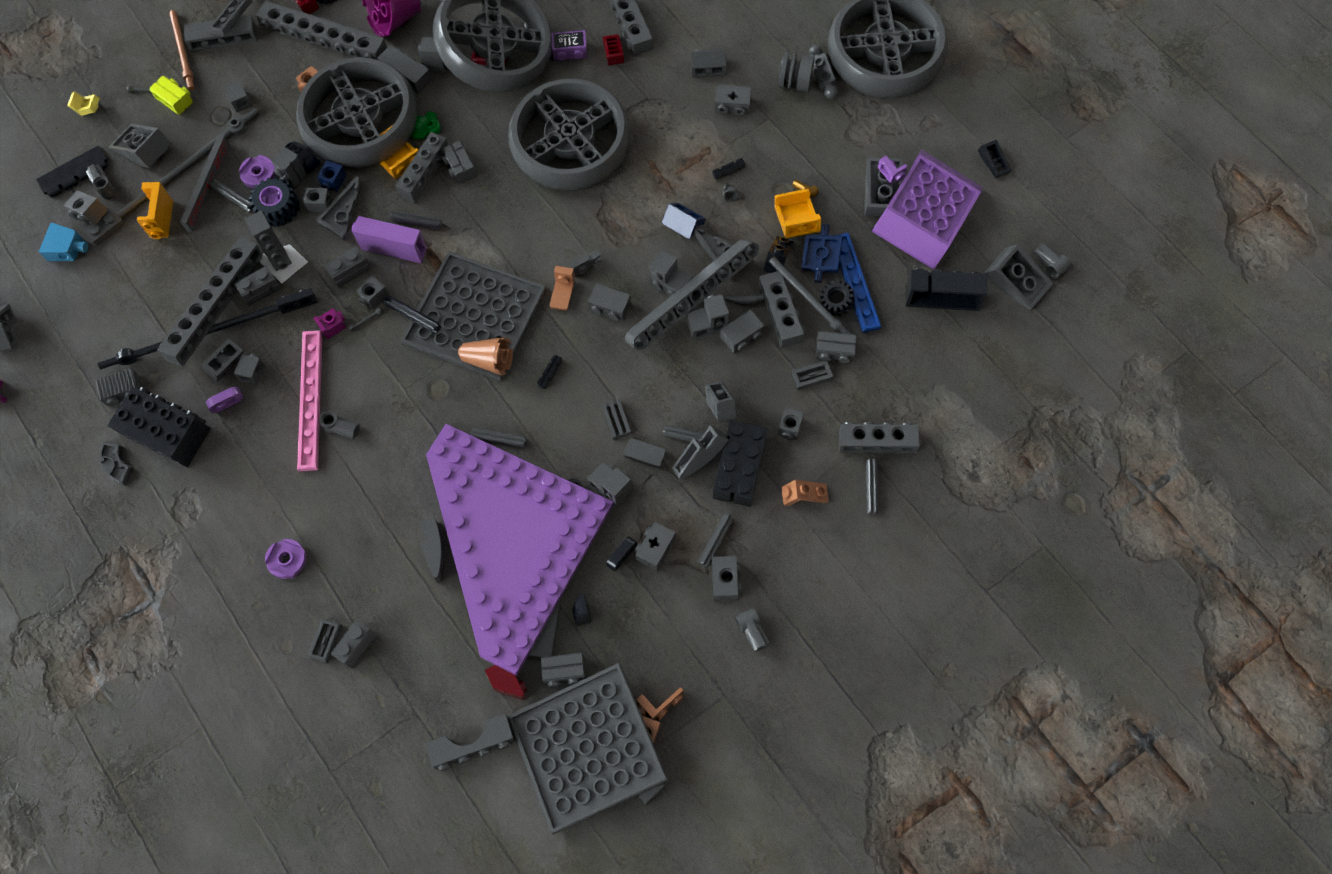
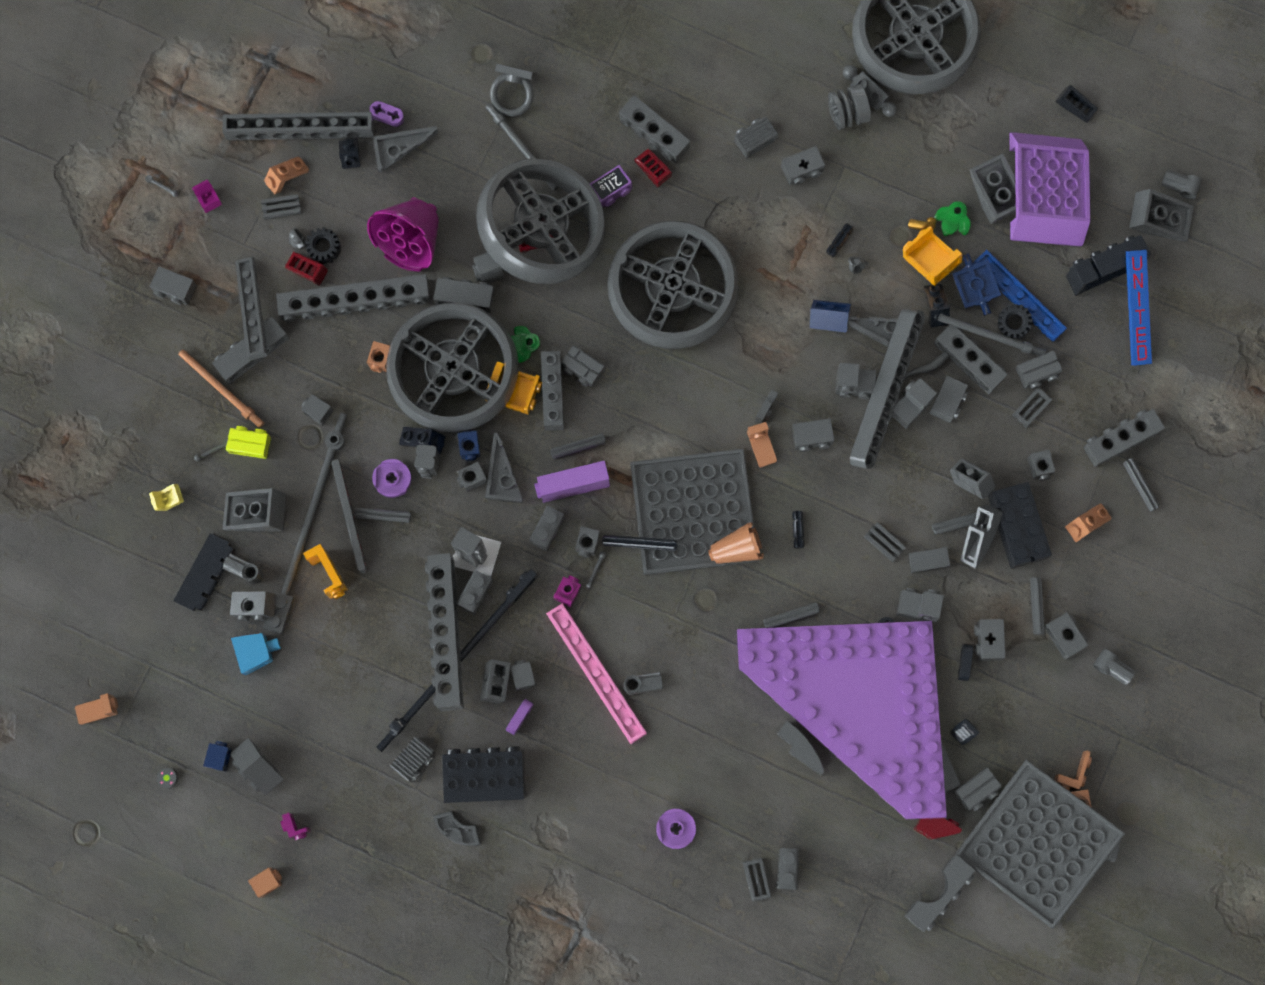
camera: 30 degrees left, 10 degrees up
(275, 200) = (432, 501): black wheel -> none
(833, 198) = (951, 221): none -> green plate
(890, 171) = (999, 173): medium lavender bracket -> none
(952, 334) = (1138, 307): none -> blue tile

